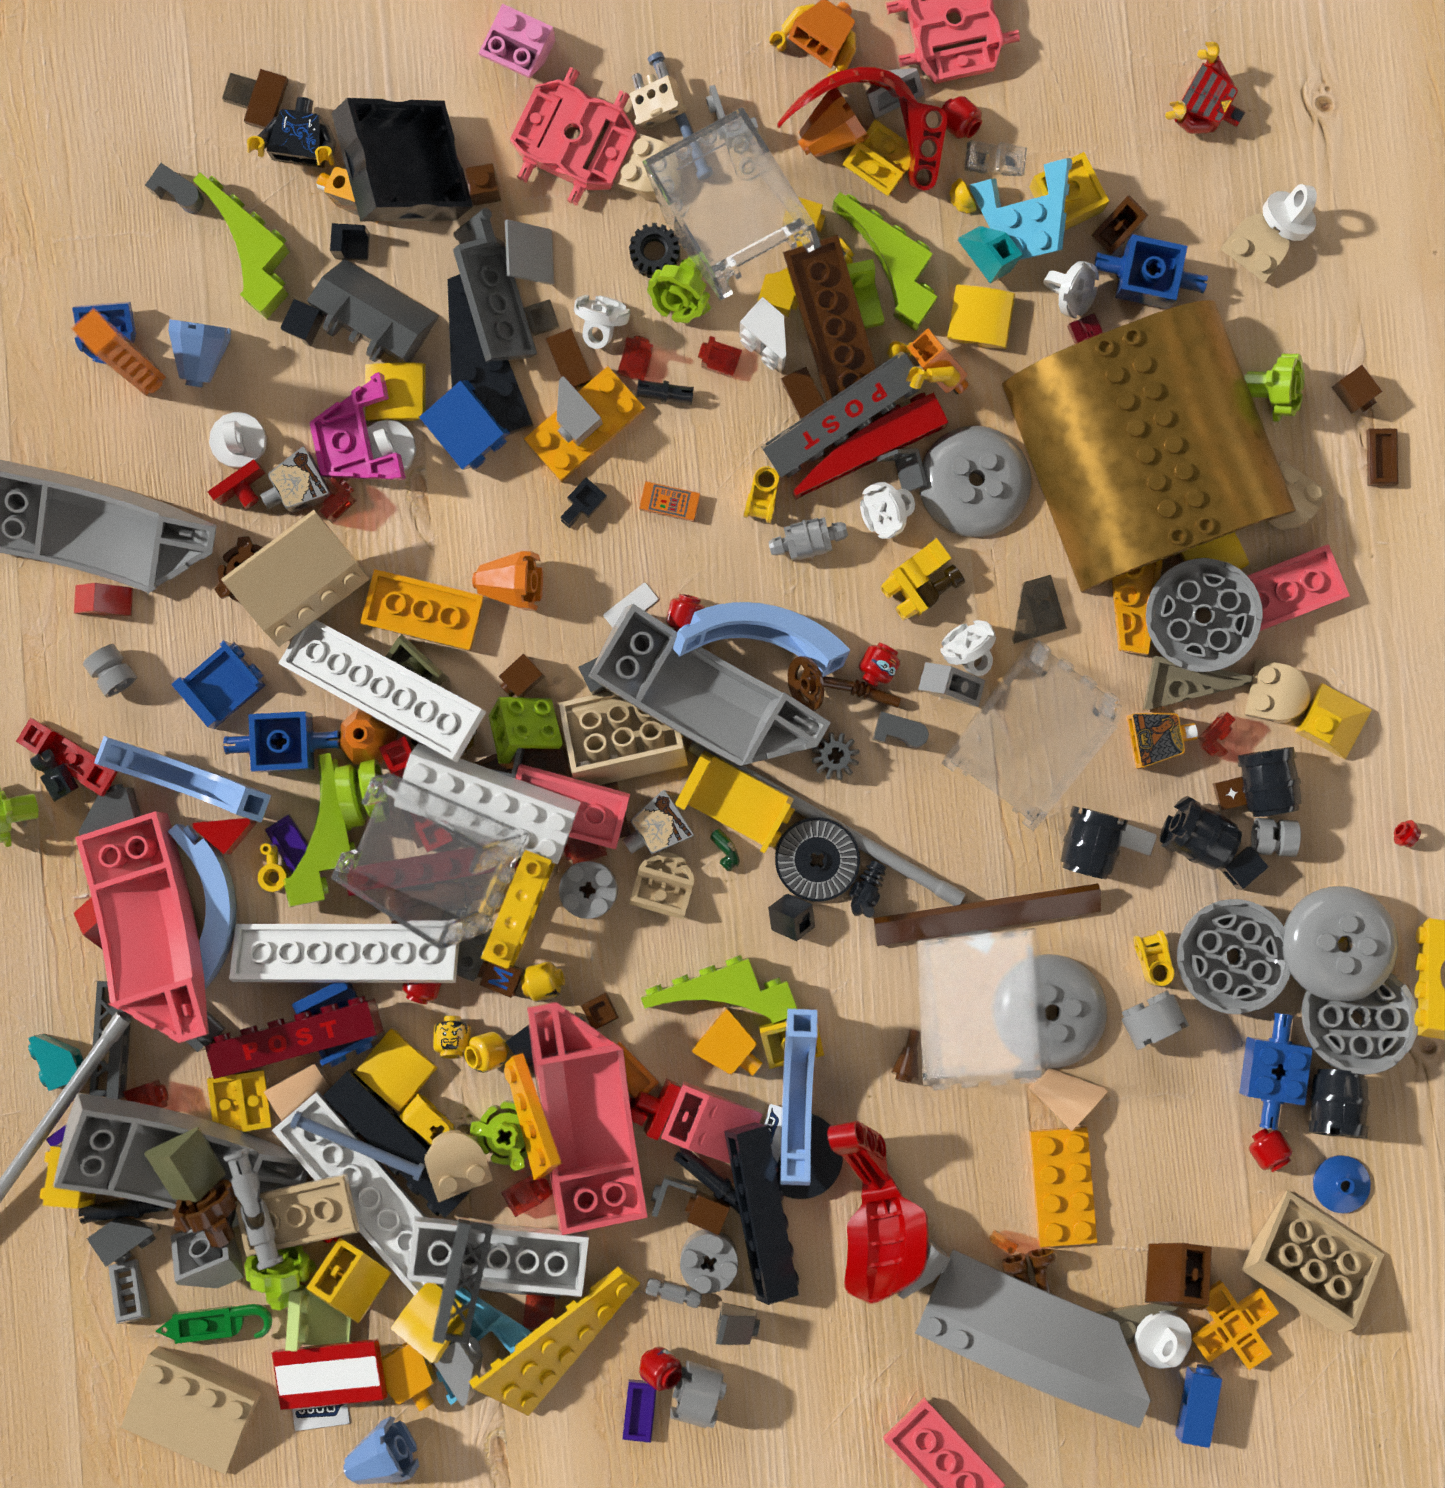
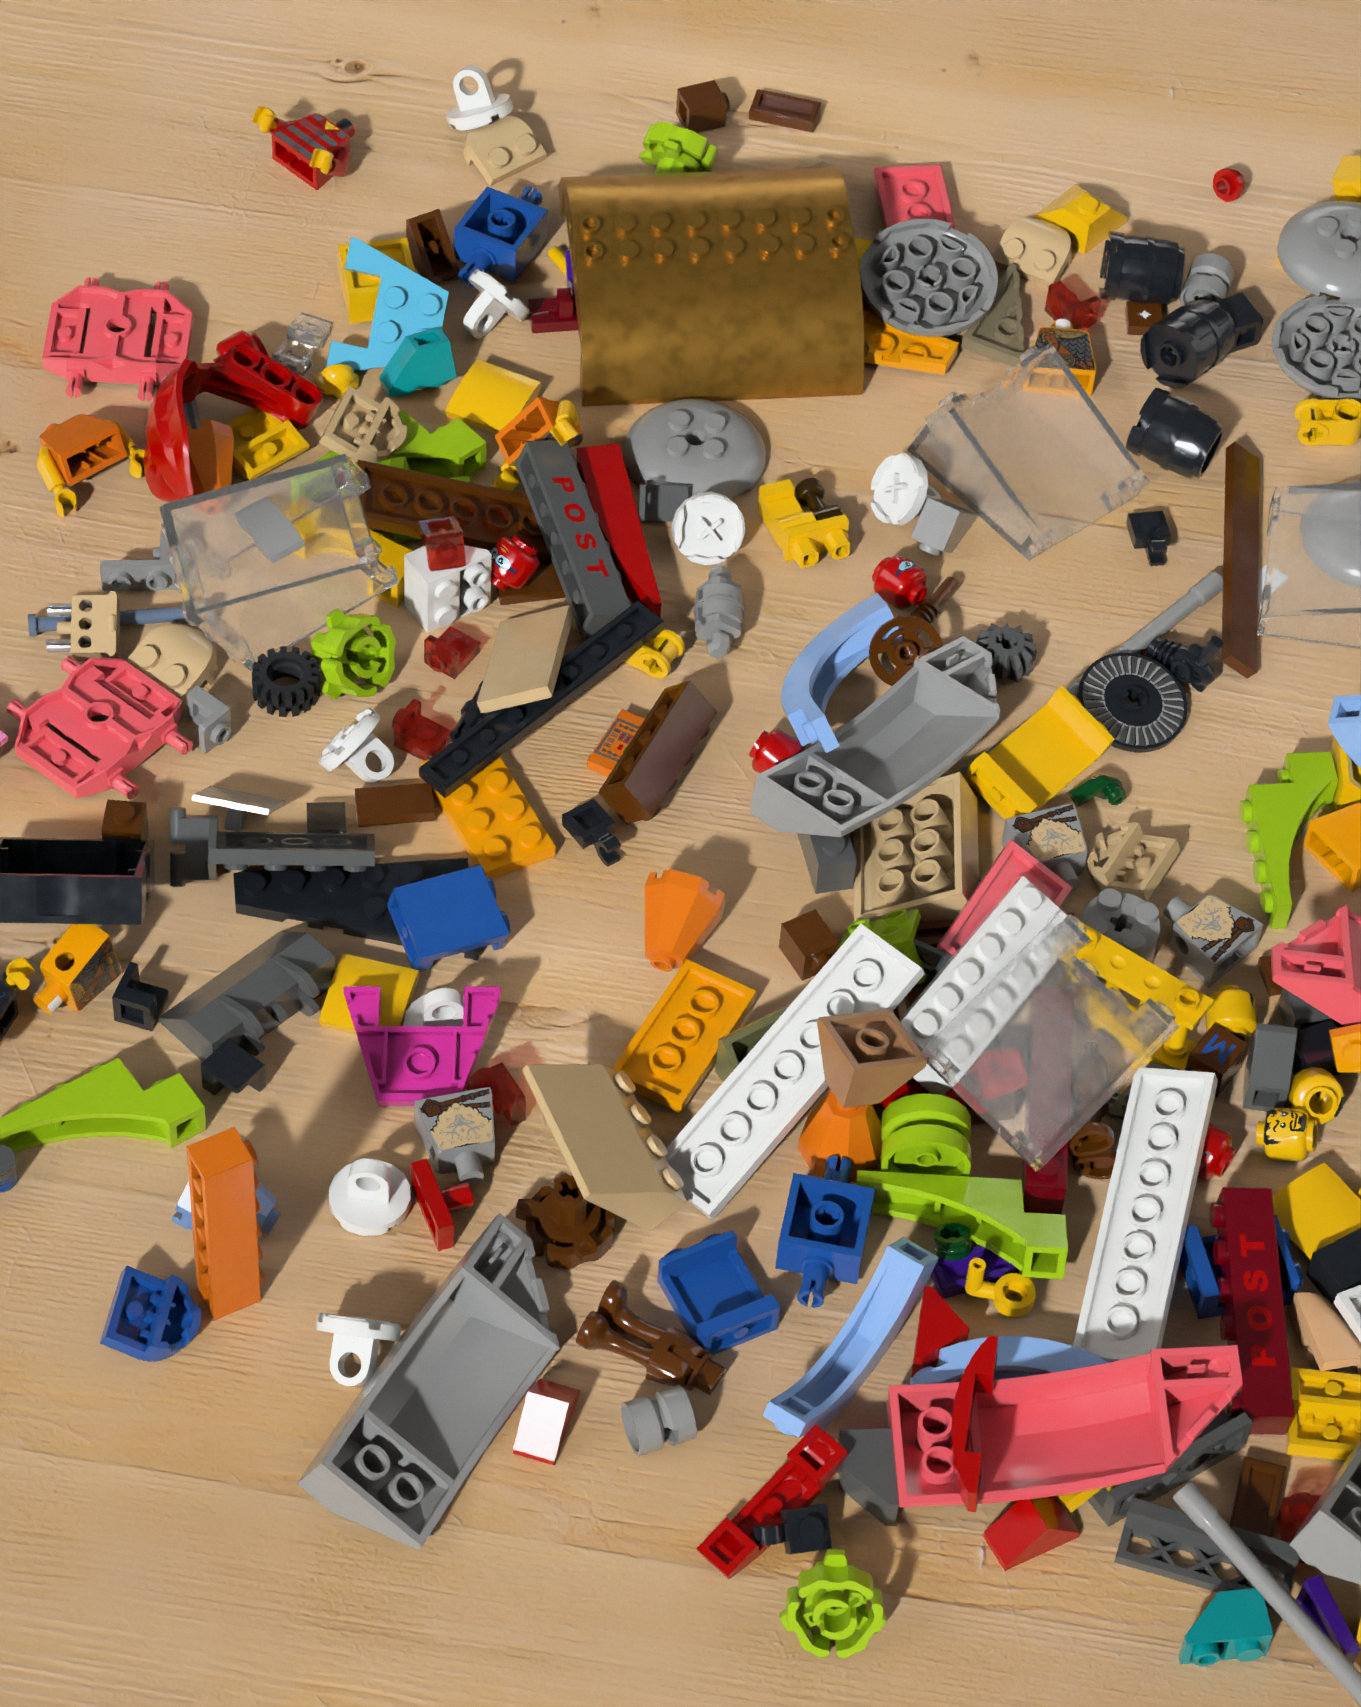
camera: 80 degrees left, 35 degrees down
(97, 873) = (978, 1378): none -> red slope
(118, 463) = (355, 1336): none -> white tile
(161, 668) = (674, 1355): none -> reddish brown piece
(163, 1064) = (1257, 1496): none -> reddish brown tile
(309, 828) = (952, 1241): none -> dark green bush
(378, 739) = (867, 1056): none -> medium nougat slope
(496, 1015) = (1269, 1067): none -> dark grey slope
(574, 414) = (475, 793): light grey slope -> none
(607, 208) = (211, 716): none -> light grey bracket
(611, 954) = (1211, 936): none -> light grey torso
(641, 597) = (748, 827): white sticker -> none
(658, 529) = (658, 753): none -> reddish brown brick
(679, 434) = (508, 726): none -> black tile
(710, 412) = (525, 659): none -> tan tile
(720, 192) = (269, 529): none -> light grey slope
(774, 319) = (443, 543): none -> clear red bracket
(791, 917) = (1201, 743): black panel -> none
(800, 376) = (513, 562): none -> red head
(894, 230) = (364, 428): none -> tan slope
(910, 732) = (984, 588): dark grey leg -> none
(996, 840) = (1150, 532): none -> black plate
(1038, 610) = (871, 430): clear smoke wing -> none

